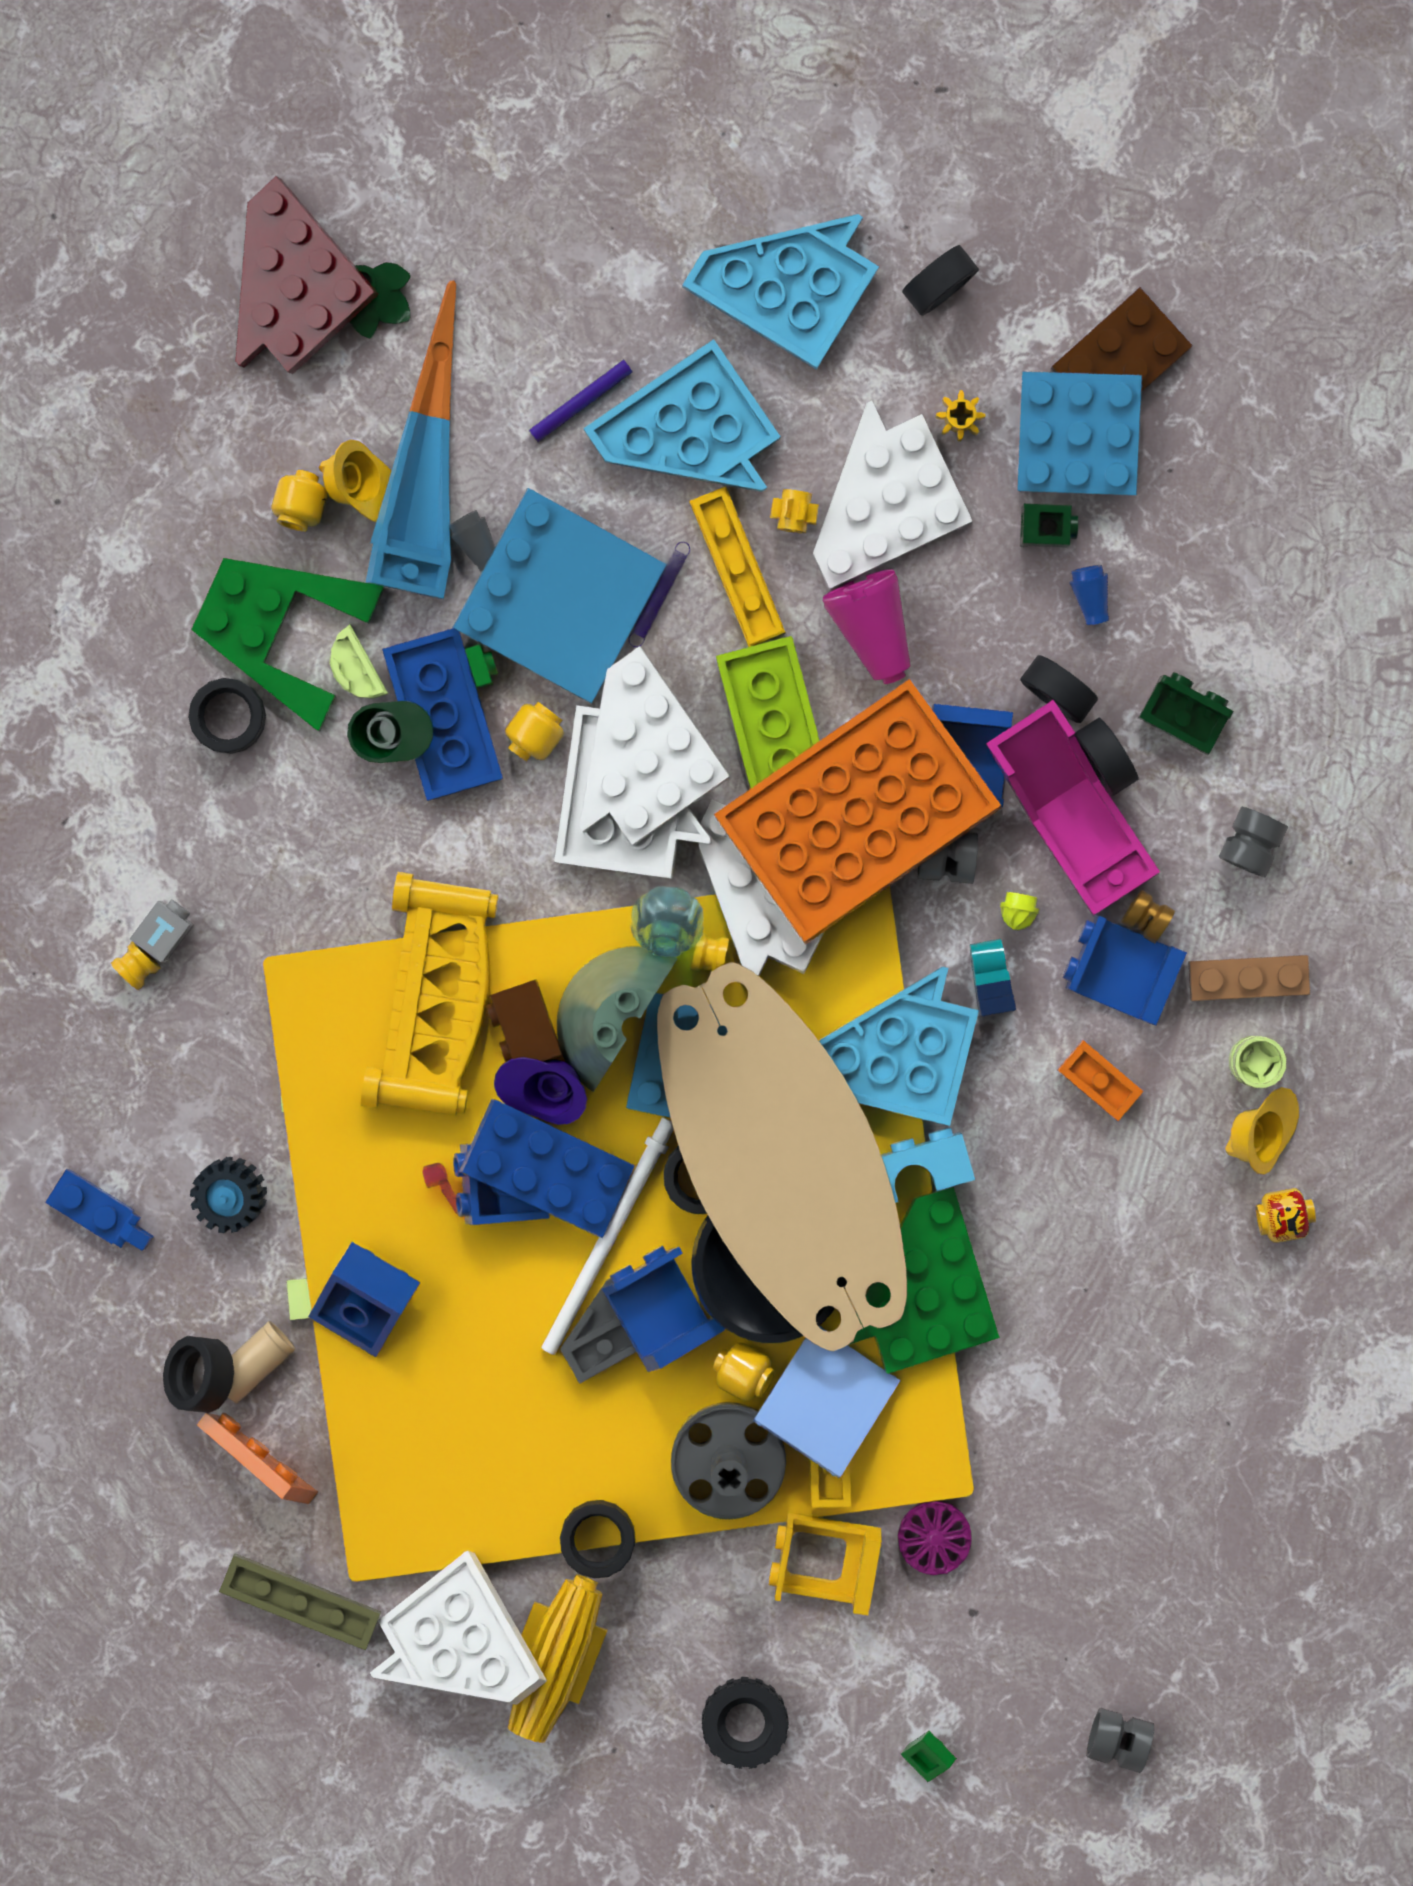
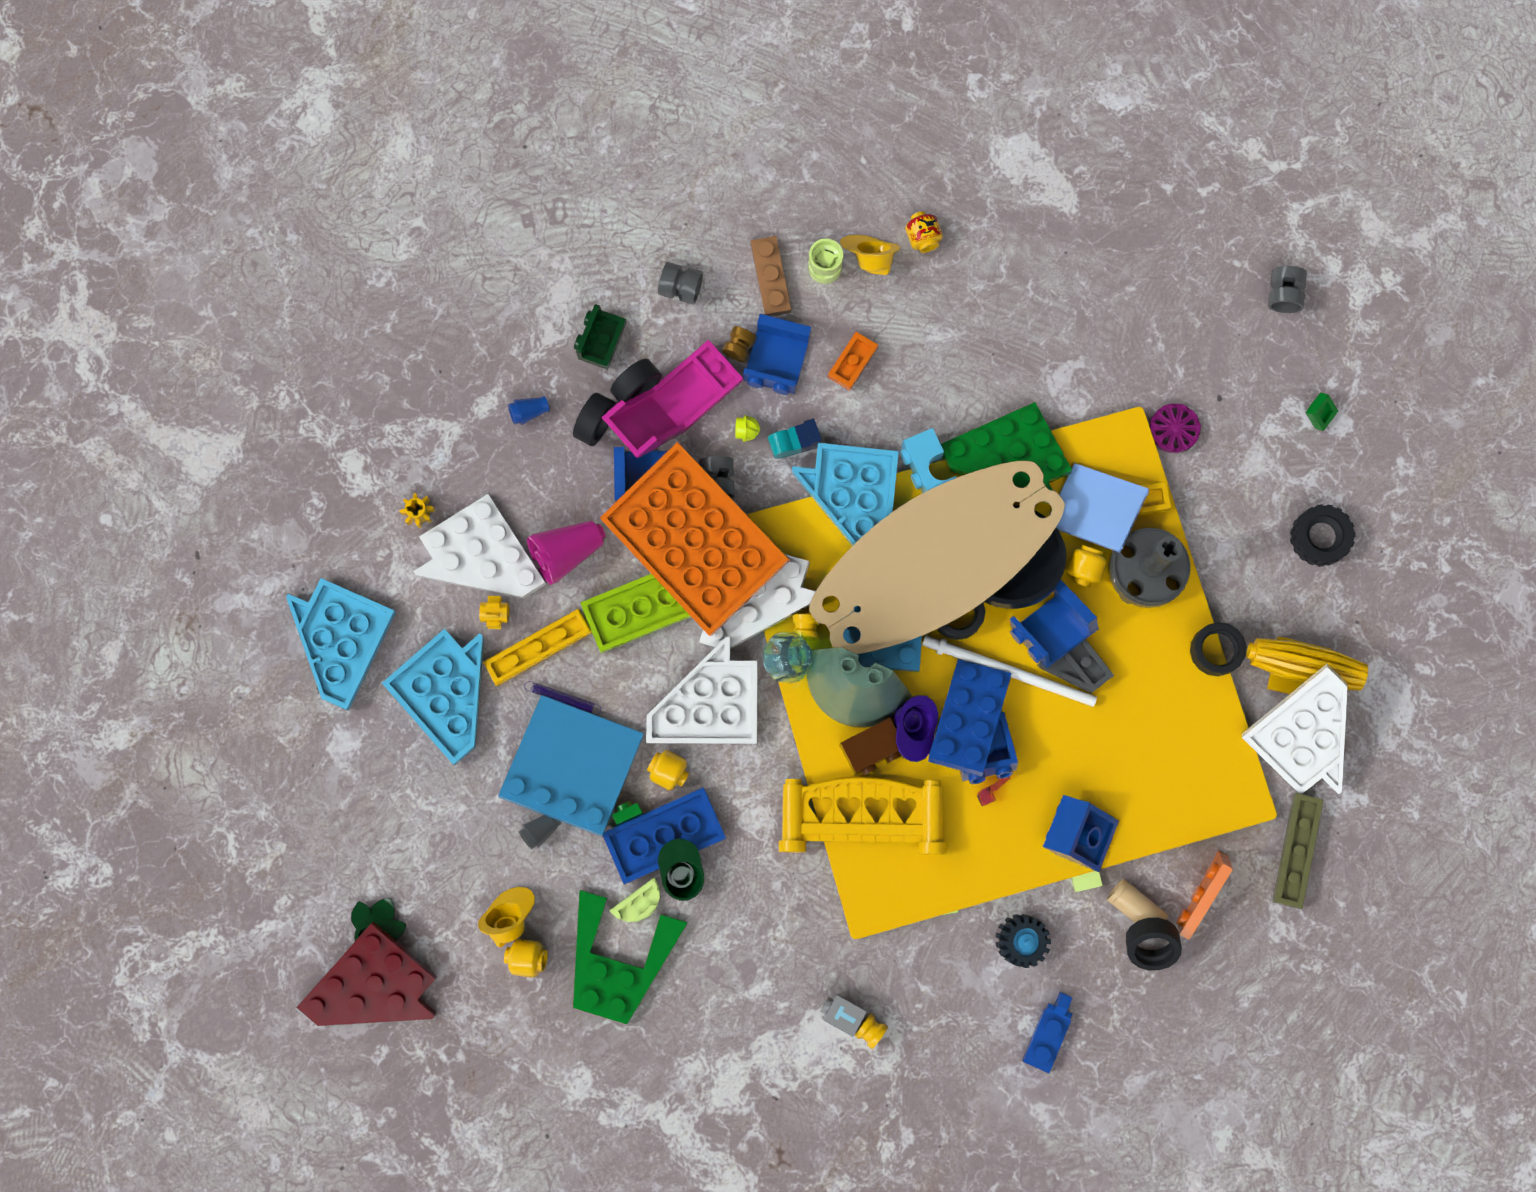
camera: 95 degrees left, 10 degrees down
(198, 724) = (684, 1011): black tyre -> none
(413, 523) = (529, 874): dark azure plate -> none
(580, 401) = (434, 770): dark purple bar -> none
(645, 753) = (673, 689): white wing -> none
(858, 1567) = (1206, 473): yellow window -> none
(940, 280) = (325, 534): black tyre -> none
(1031, 520) = (478, 435): dark green brick -> none
(1079, 433) = (420, 430): dark azure plate -> none
(1128, 342) = (367, 412): reddish brown plate -> none

